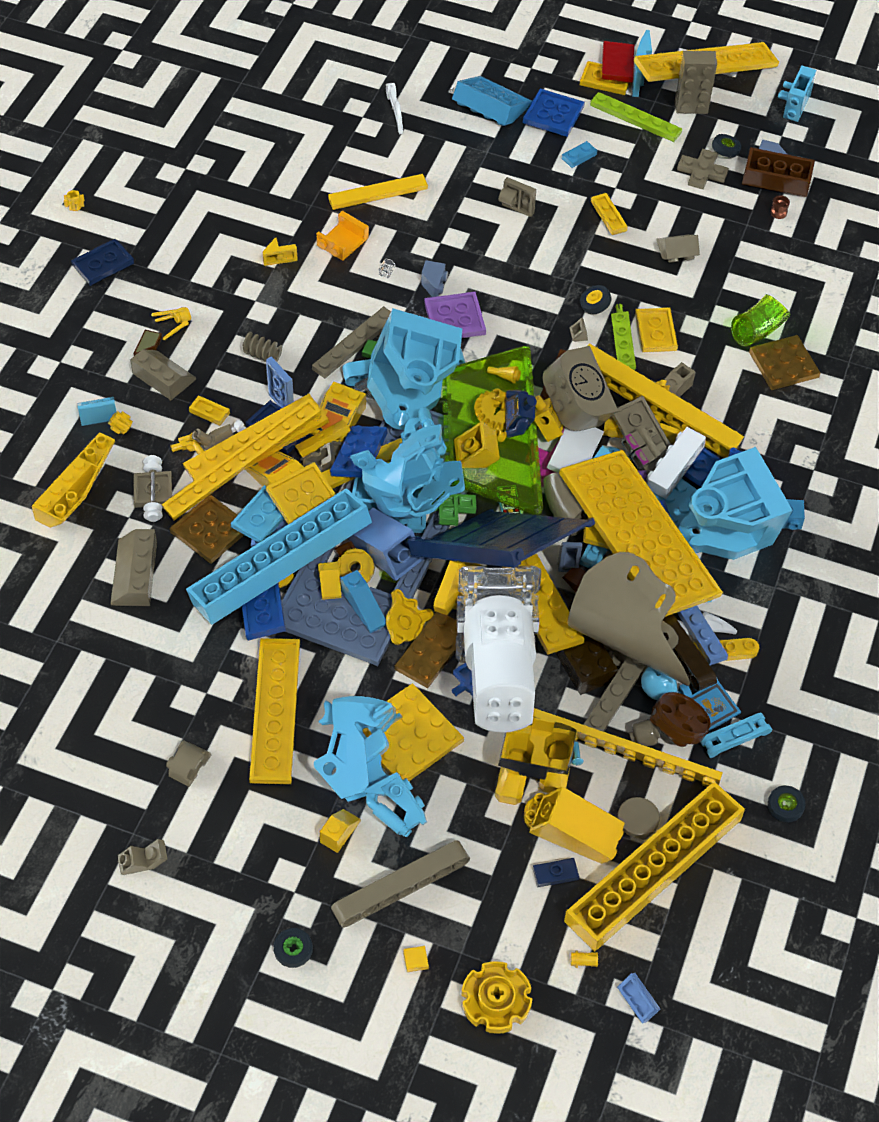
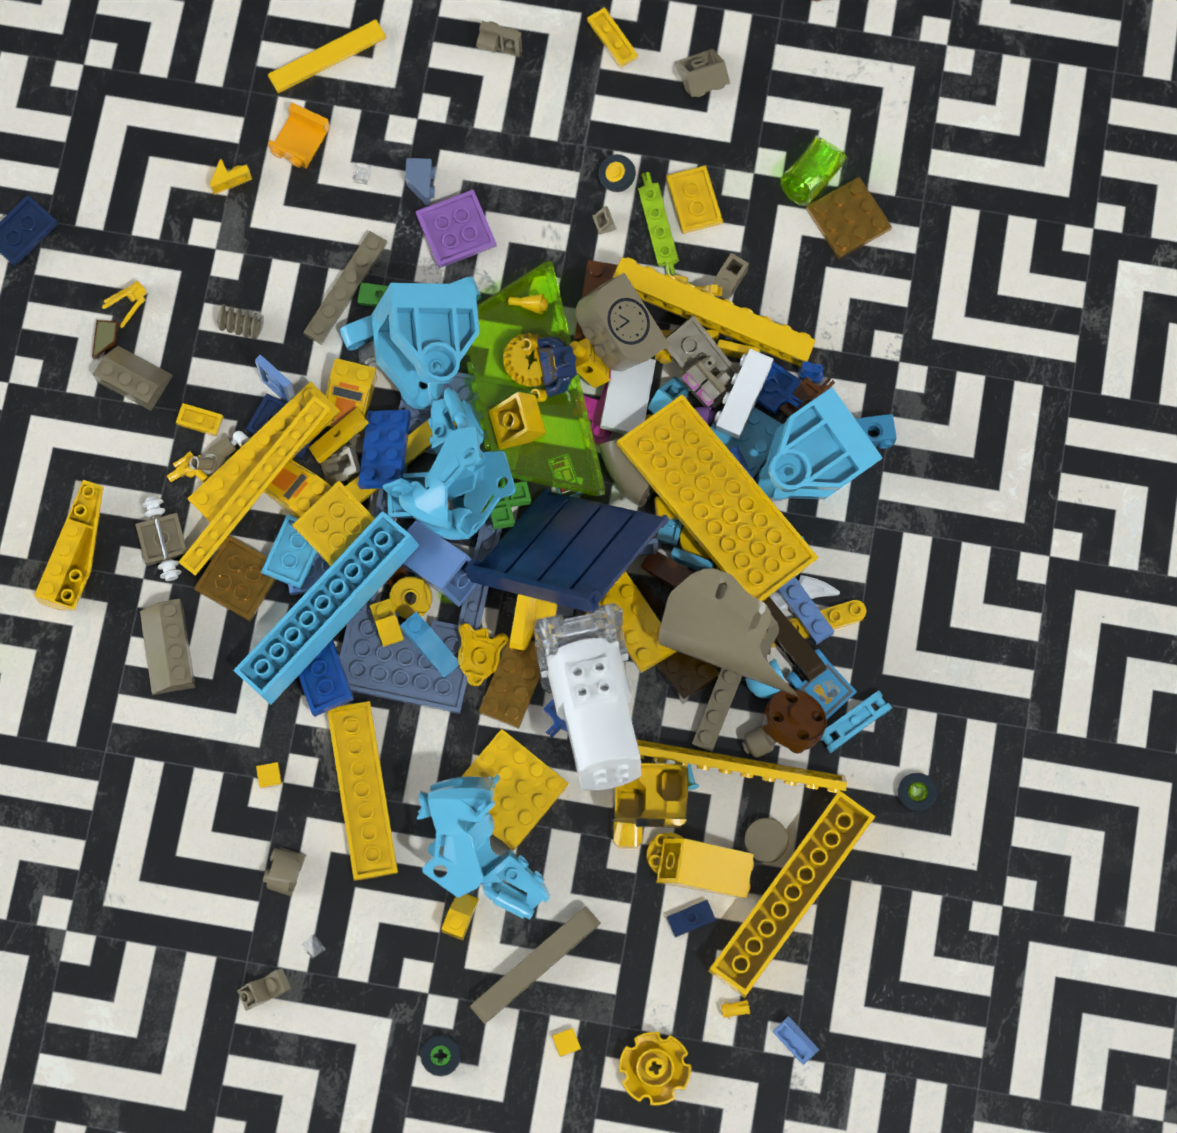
camera: 10 degrees left, 20 degrees up
(96, 411) = (70, 443): medium azure slope -> none
(120, 422) = (102, 458): yellow gear -> none
(195, 684) = (268, 775): none -> yellow tile
(197, 829) = (312, 946): none -> clear hose

